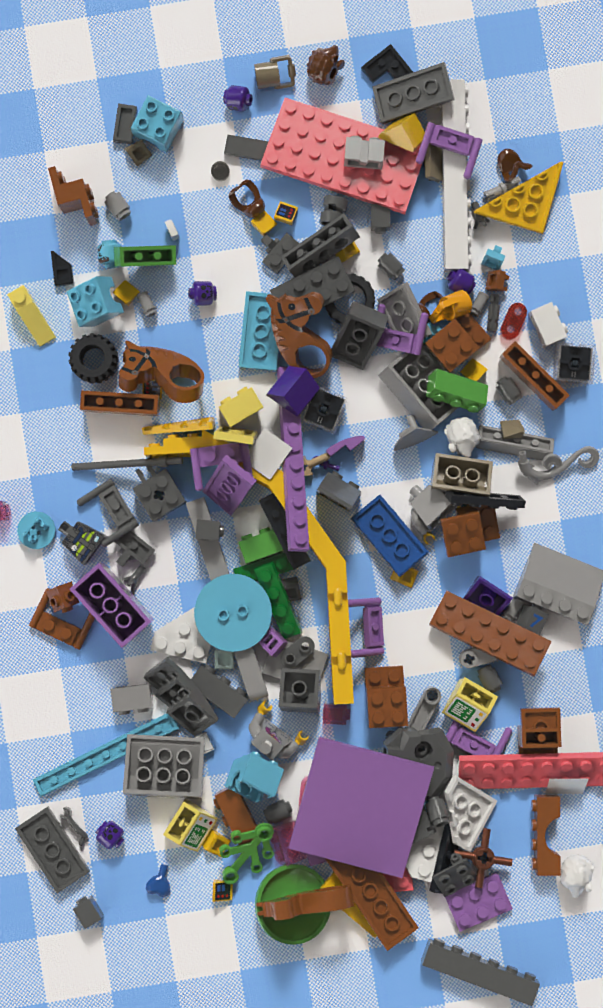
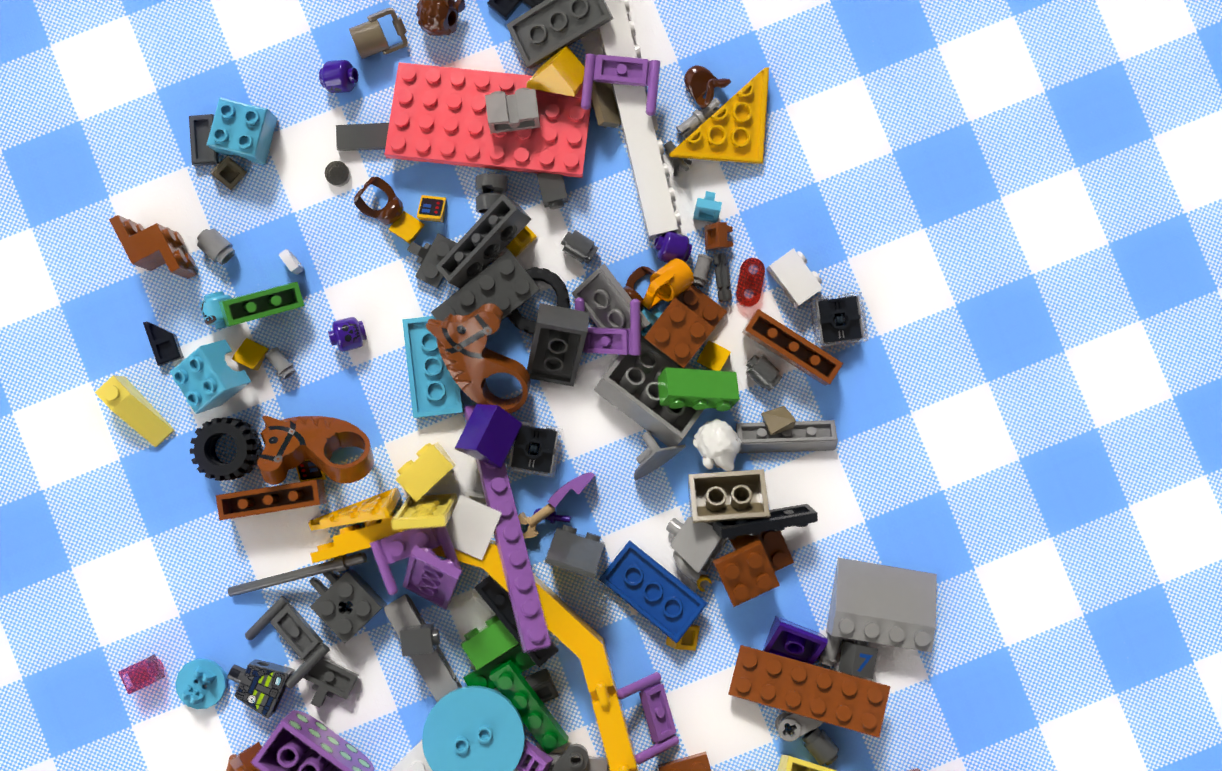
camera: 15 degrees left, 0 degrees up
(133, 579) = (339, 717): dark grey bar -> none
(559, 466) = (848, 456): light grey plant -> none

